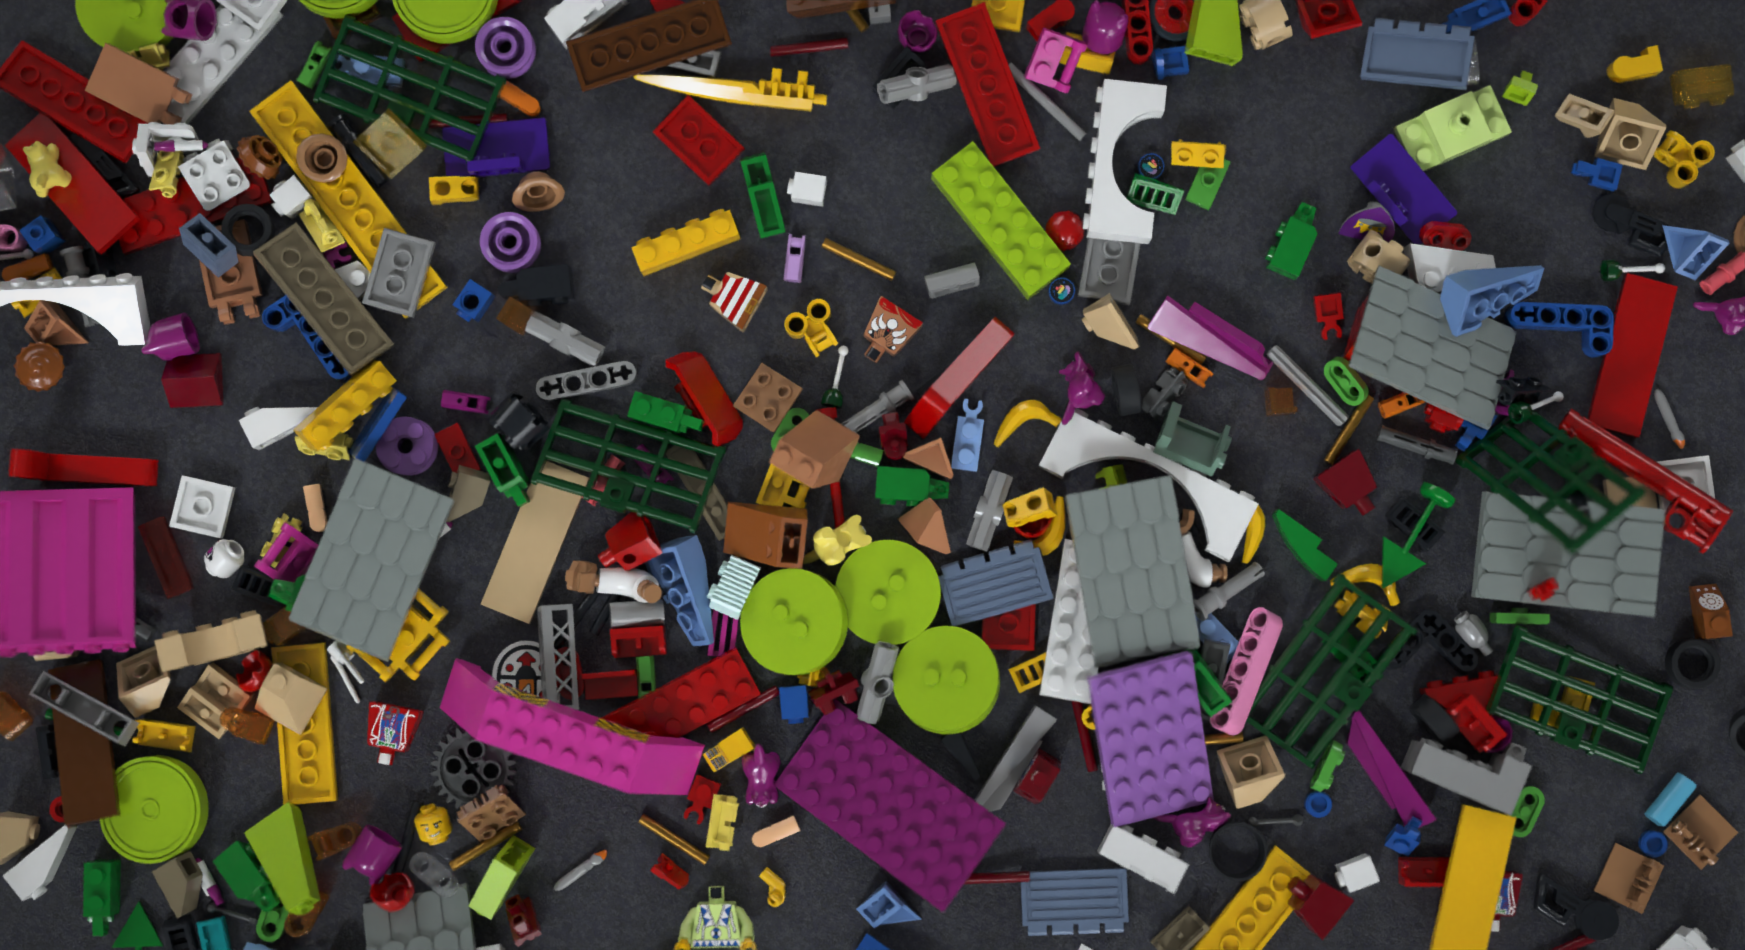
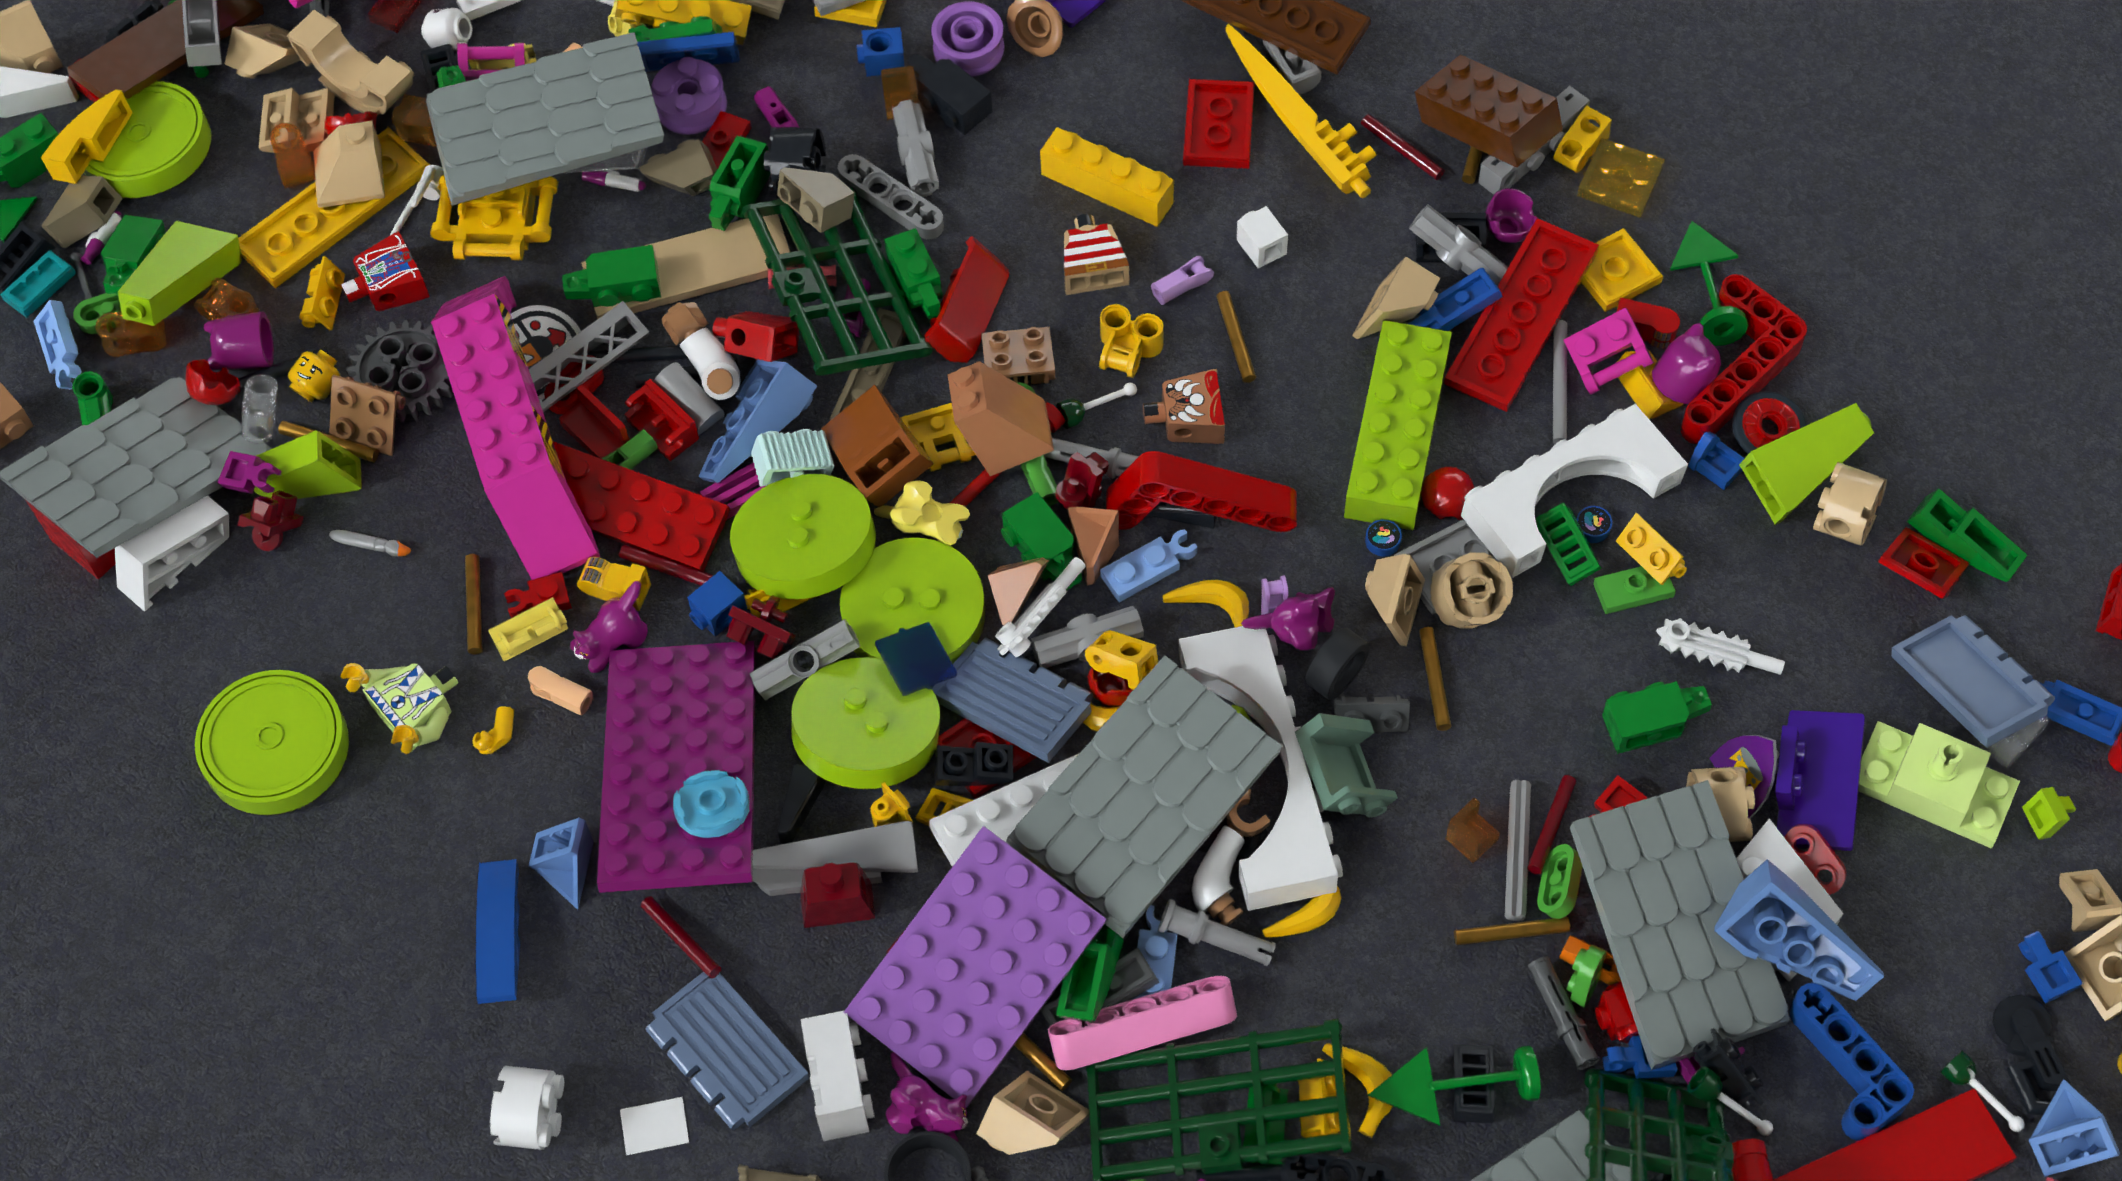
camera: 50 degrees right, 25 degrees down
(134, 848) = (87, 137): none -> yellow slope
(165, 735) = (227, 102): yellow hinge -> none
(362, 428) = (698, 26): none -> green hinge
(364, 768) = (326, 290): none -> yellow hinge
(484, 918) = (245, 472): none -> magenta plate
(516, 595) = (616, 277): none -> green hinge
(562, 432) = (816, 197): none -> dark tan slope
(670, 872) = (433, 622): red piece -> none
(762, 195) = (1218, 206): green slope -> none
(920, 151) = (1399, 297): none -> tan slope
(931, 621) = (916, 658): none -> piece
(943, 812) = (711, 804): none -> medium azure tile
(951, 118) = (1460, 302): none -> blue hinge
(952, 280) = (1295, 429): light grey brick -> none
(961, 553) = (1015, 636): none -> white piece
(1018, 711) = (890, 808): none -> yellow hinge
(1019, 639) = (973, 766): none -> black slope
(1056, 389) = (1273, 594): none -> lavender bar
(1145, 278) = (1471, 590): none -> tan brick
(1185, 364) = (1422, 713): orange bar -> none
(1210, 336) = (1474, 708): magenta wedge -> none
(1282, 171) = (1717, 648): none -> white piece
(1303, 546) = (1340, 975): green slope -> none
(1309, 354) = (1551, 824): none -> dark red bar
(1349, 482) = (1453, 970): dark red torso -> none
(1414, 418) = (1587, 973): none -> bright green plate

